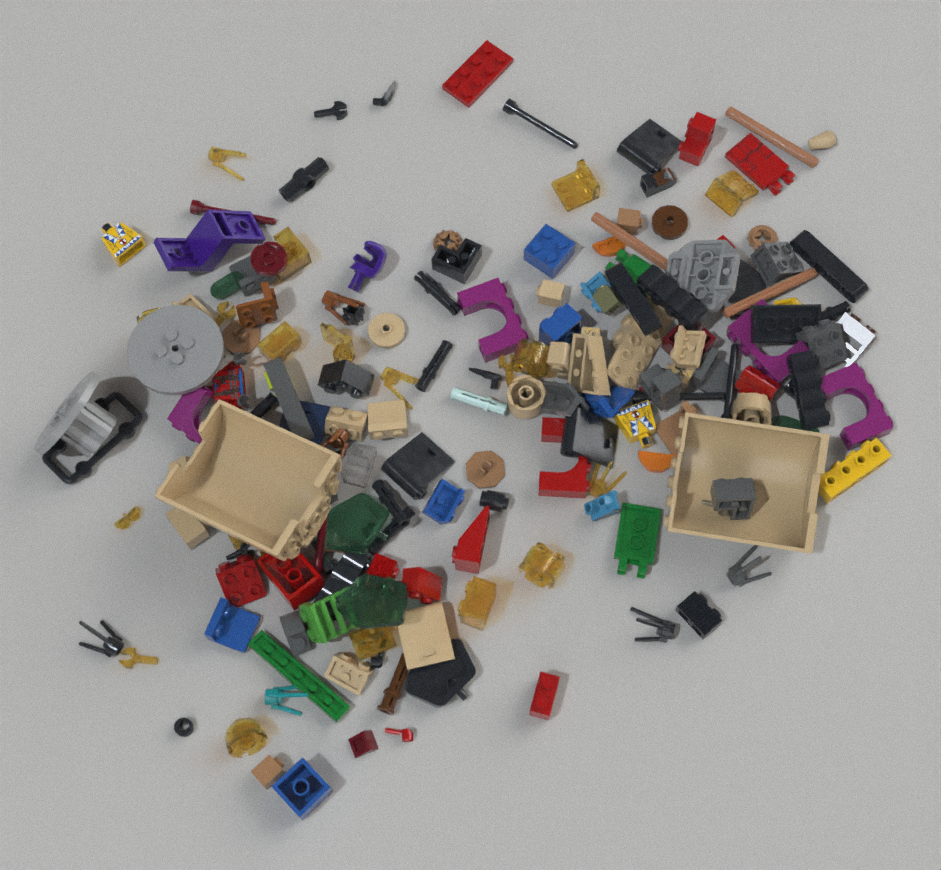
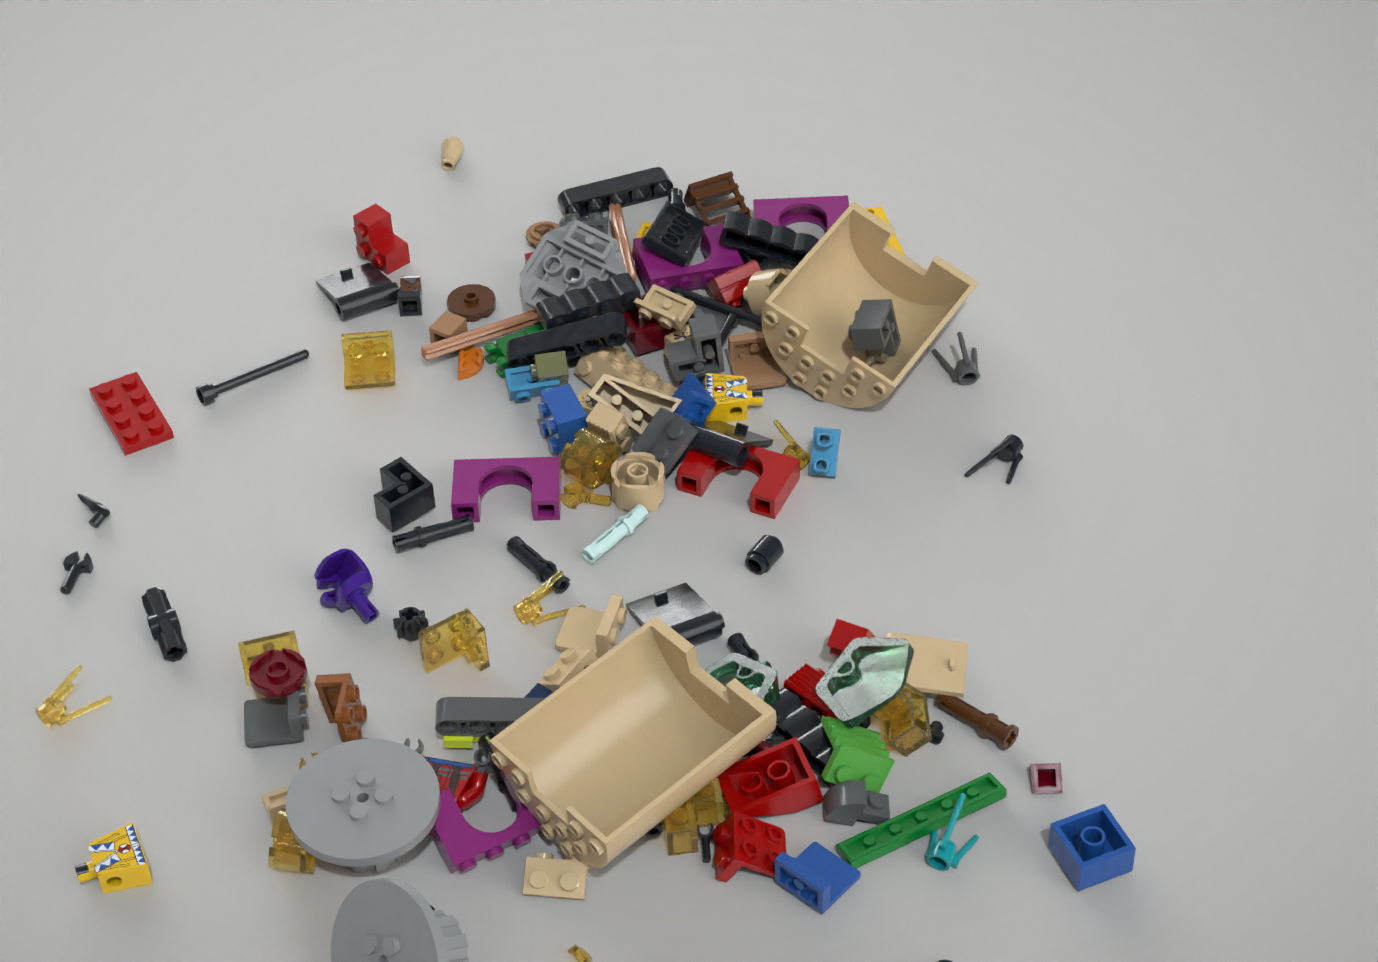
camera: 70 degrees left, 25 degrees down
(189, 528) = (636, 885): tan brick -> none
(198, 208) = (121, 757): dark red piece -> none
(209, 240) = (199, 739): dark purple bracket -> none
(226, 286) = (276, 751): clear green tile -> none
(245, 736) = (989, 895): clear yellow cylinder -> none
(268, 771) = (1051, 885): medium nougat brick -> none
(280, 342) = (410, 709): clear yellow brick -> none
(333, 300) = (375, 640): dark orange plant -> none
(346, 377) = (505, 648): black brick -> none
(348, 672) = (942, 763): tan bracket -> none
(387, 498) = (708, 655): black pin -> none
(389, 338) = (454, 596): tan plate -> none
(407, 735) = (1050, 727): red hand -> none
(441, 681) = (992, 670): black animal -> none
(443, 502) = (743, 601): blue bracket -> none
(455, 240) = (360, 514): medium nougat gear -> none
(470, 546) = (818, 578): red slope -> none
(477, 603) = (904, 596): clear yellow brick -> none
(485, 469) = (712, 558): medium nougat piece -> none
(495, 378) = (583, 515): black bar -> none
(542, 566) = (880, 525): clear yellow brick -> none
(544, 696) = (1052, 574): red brick -> none
(549, 251) = (444, 410): blue brick -> none
(550, 293) = (504, 425): tan brick -> none
(636, 537) = (882, 443): green tile -> none
(655, 461) = (785, 400): orange tile -> none
(699, 614) = (1002, 414): black brick -> none
(730, 192) = (470, 241): clear yellow bracket -> none
(760, 164) = (446, 209): red tile -> none
(772, 137) = (422, 188): nougat axle -> none
(825, 342) = (709, 205): dark grey bracket -> none

